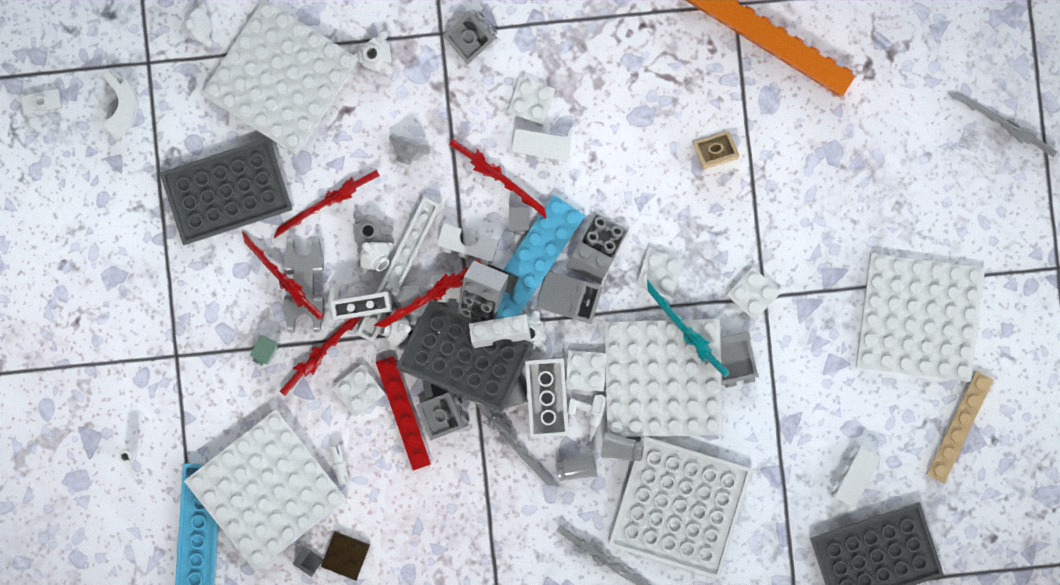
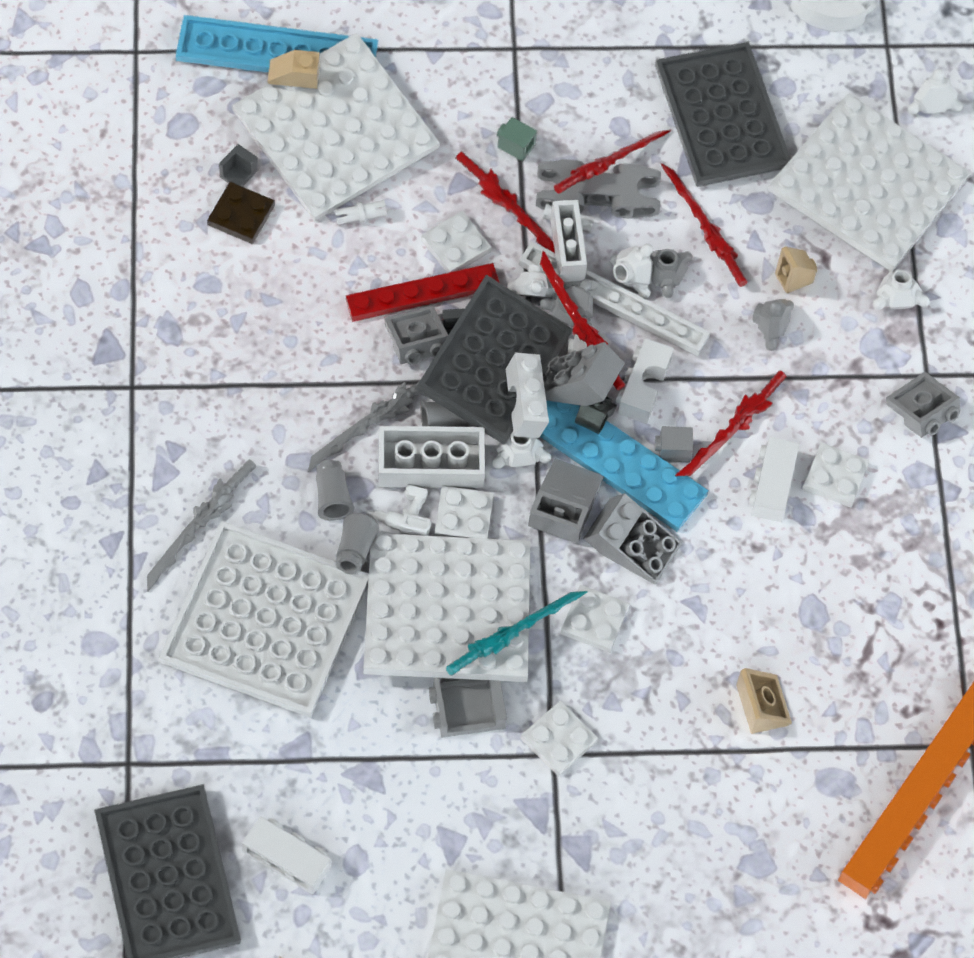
camera: 90 degrees right, 25 degrees down
(227, 526) = (295, 69): none -> tan slope
(364, 132) = (795, 269): none -> tan slope

